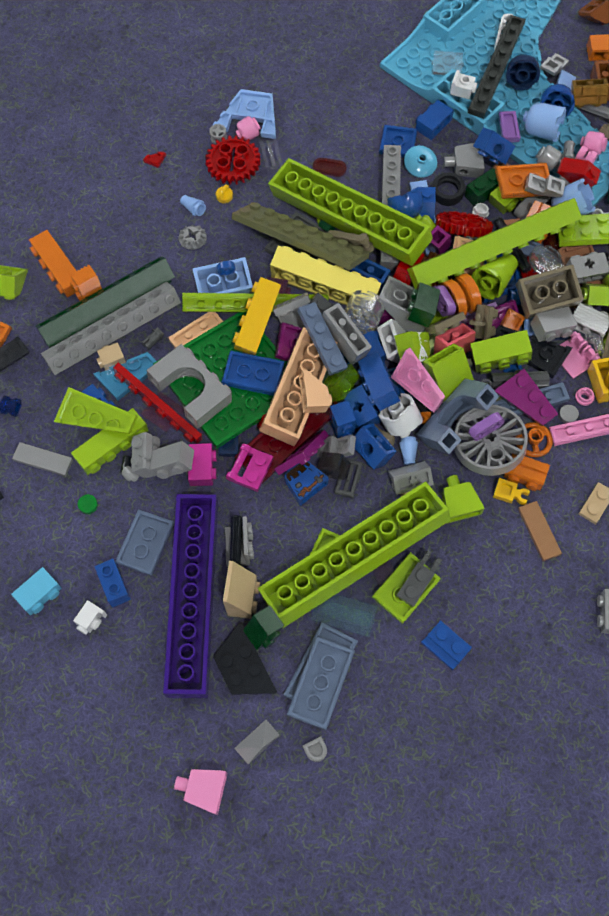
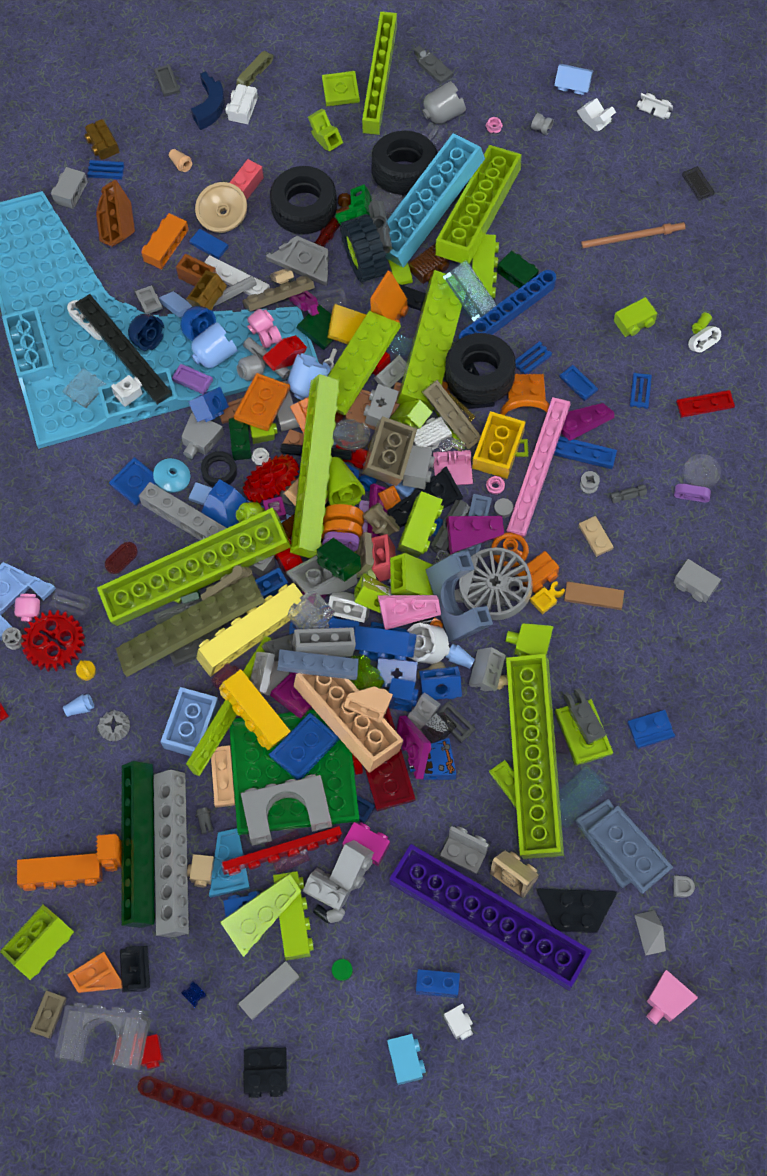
camera: 60 degrees left, 0 degrees up
(145, 542) = (411, 935): sand blue tile -> none
(226, 268) = (185, 709): blue tile -> none
(236, 539) = (464, 852): black axle -> none
(255, 470) = (402, 796): dark pink plate -> none
(263, 628) = (559, 869): dark green brick -> none
(408, 204) = (225, 514): blue cylinder -> none
(434, 119) = (136, 437): blue brick -> none
(486, 426) = (486, 575): medium lavender beam -> none
(546, 187) = (283, 389): light grey slope -> none

